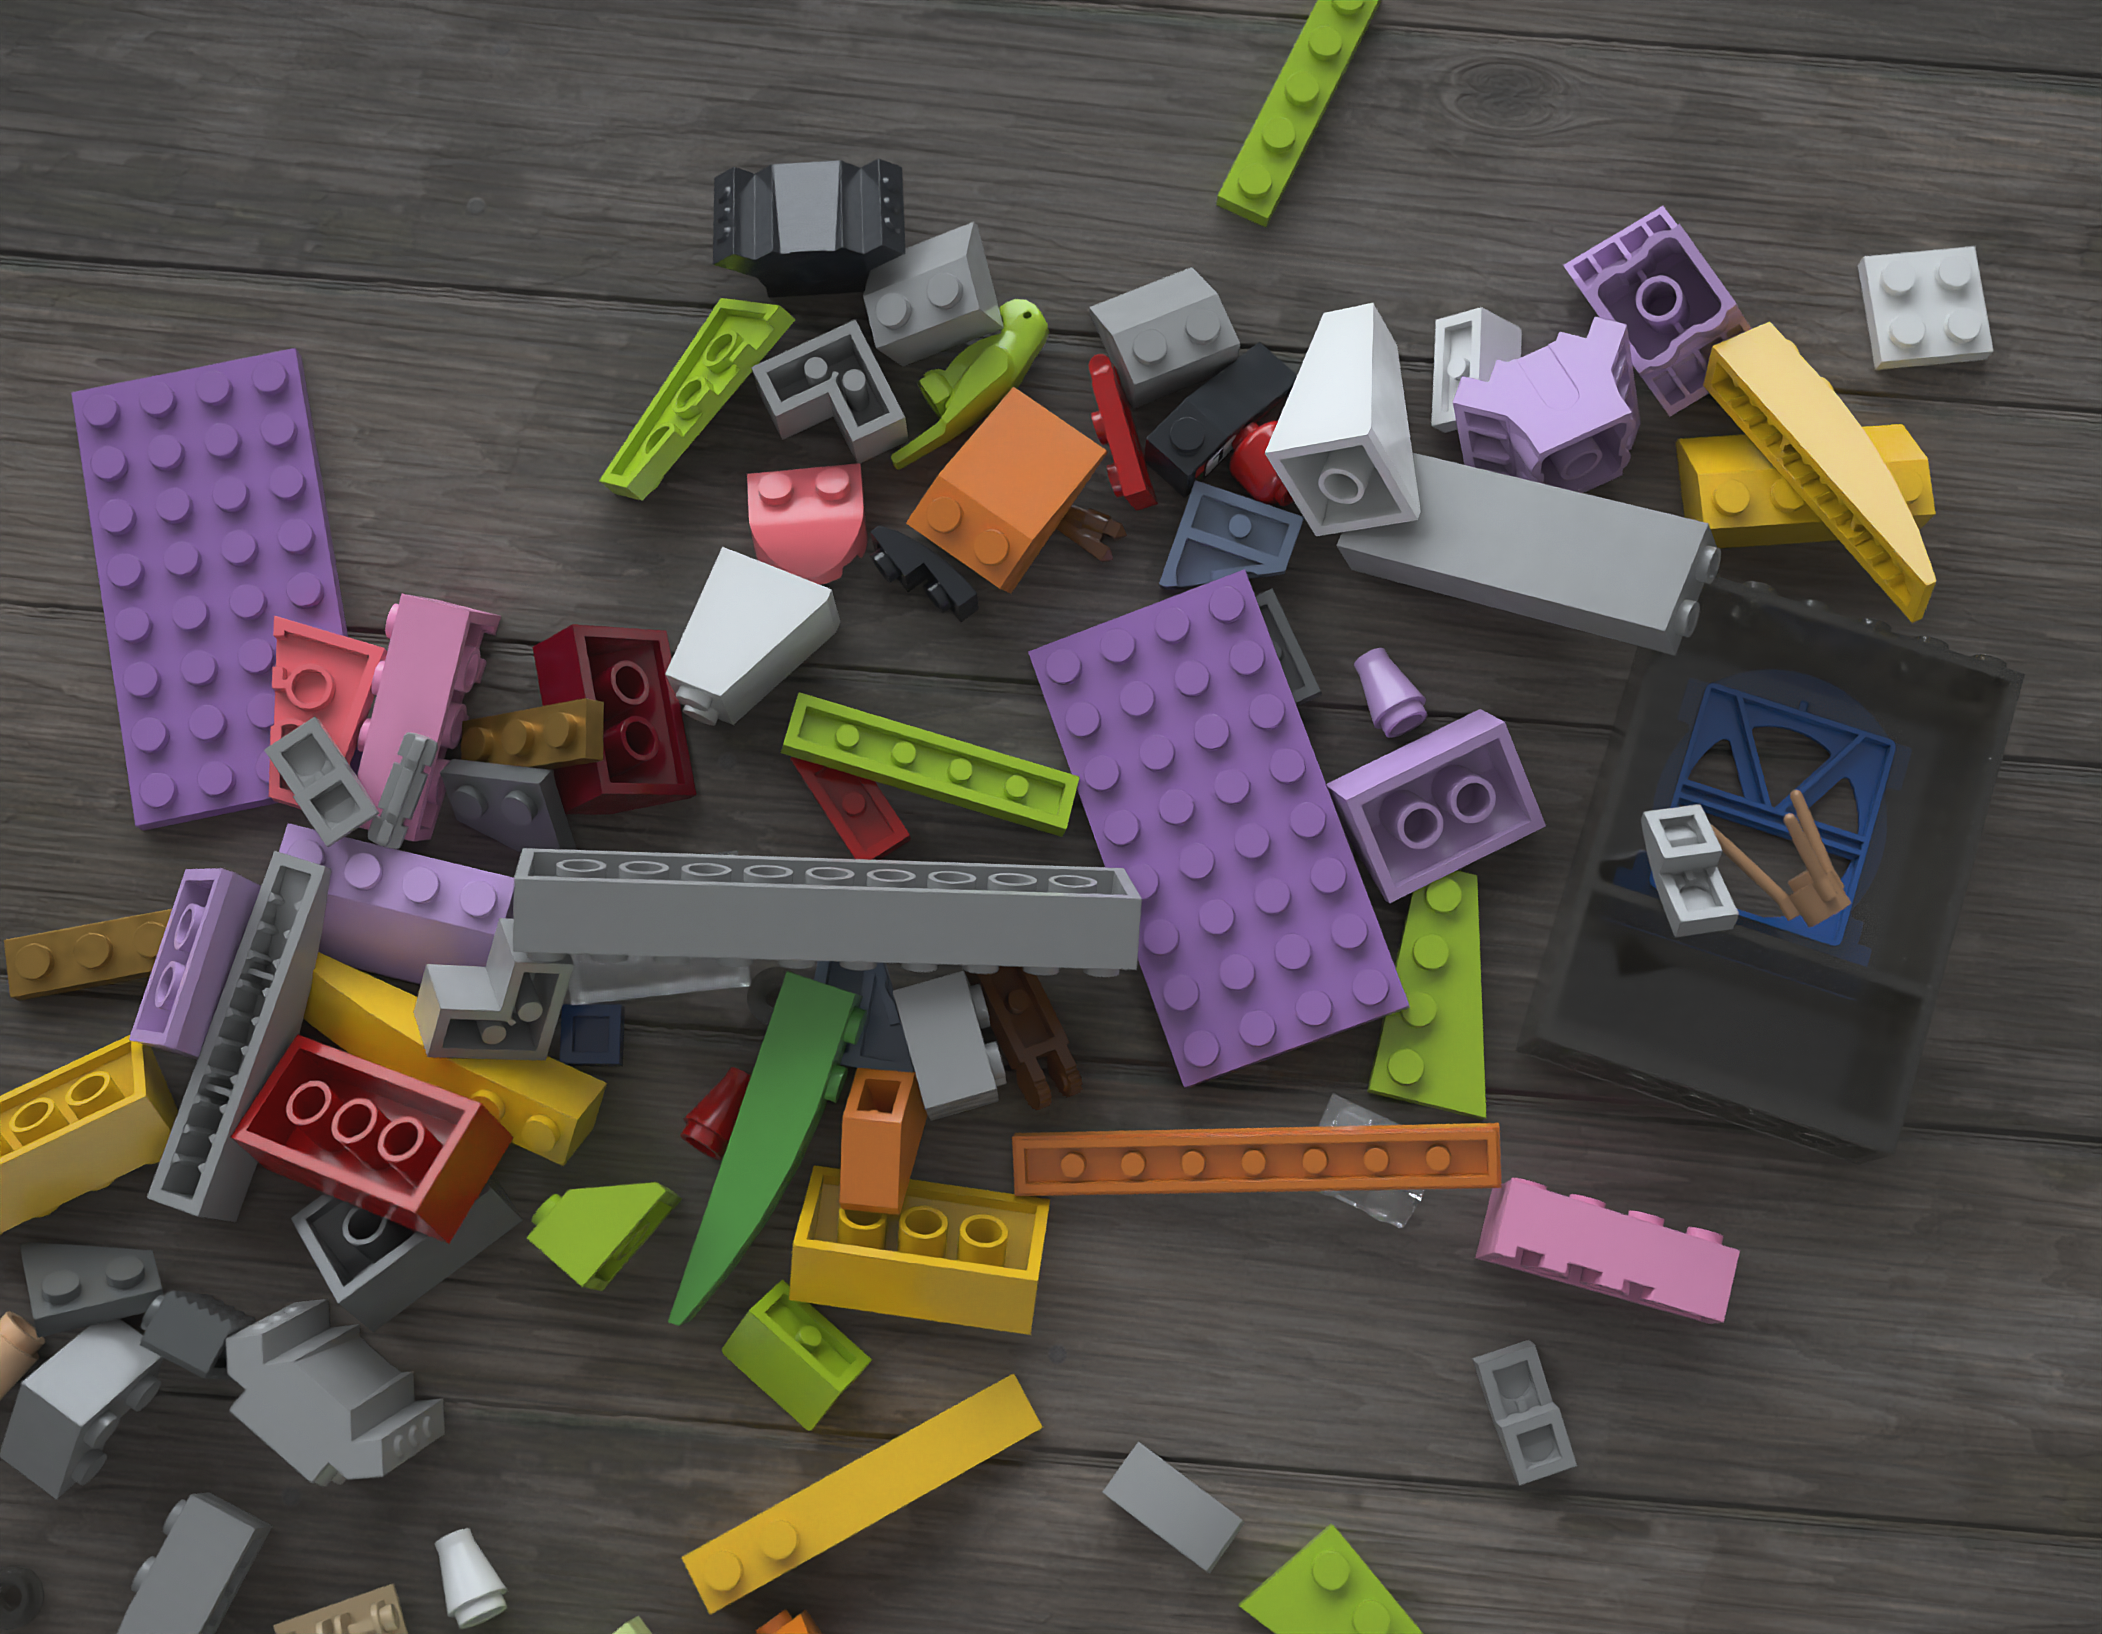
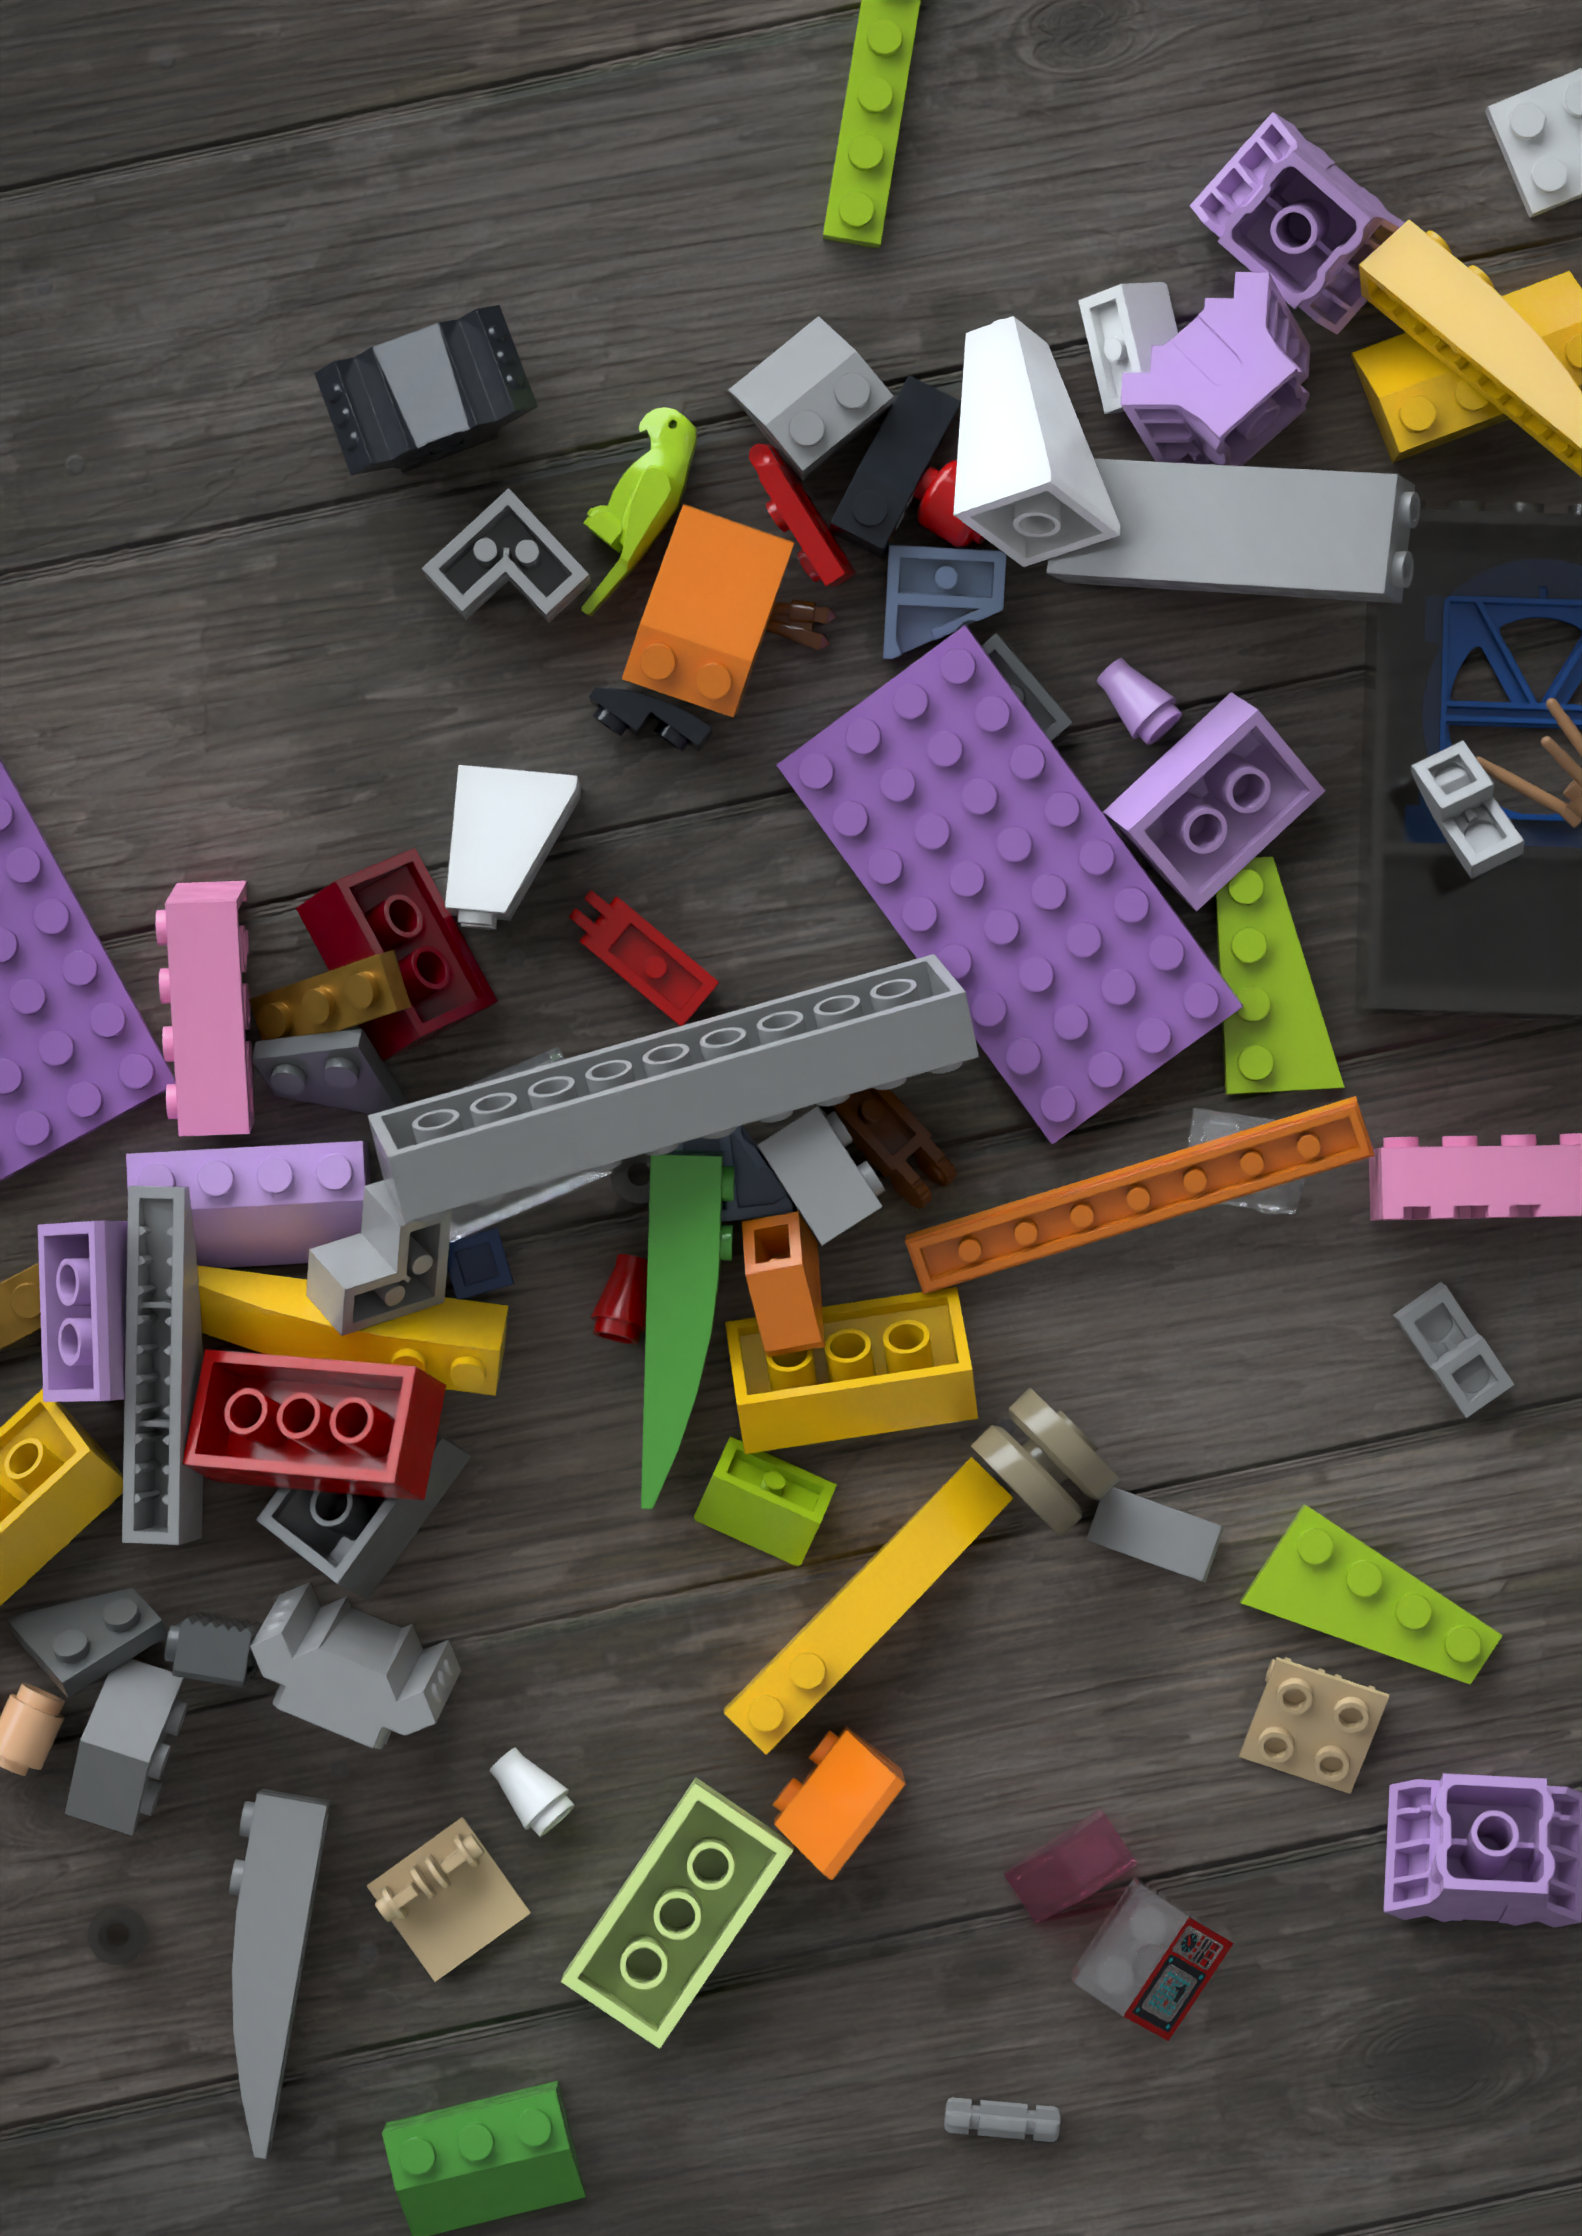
camera: 20 degrees left, 10 degrees up
(322, 781) = (149, 1106): light grey slope -> none
(323, 679) = (115, 1035): coral wing -> none
(402, 790) = (227, 1090): light grey axle -> none
(600, 1228) = (548, 1443): lime slope -> none
(702, 381) = (371, 589): lime wing -> none
(808, 519) = (519, 697): coral slope -> none
(930, 764) = (718, 908): lime plate -> none
(932, 297) = (575, 431): light grey slope -> none
(1084, 1398) = (1046, 1461): none -> dark tan wheel

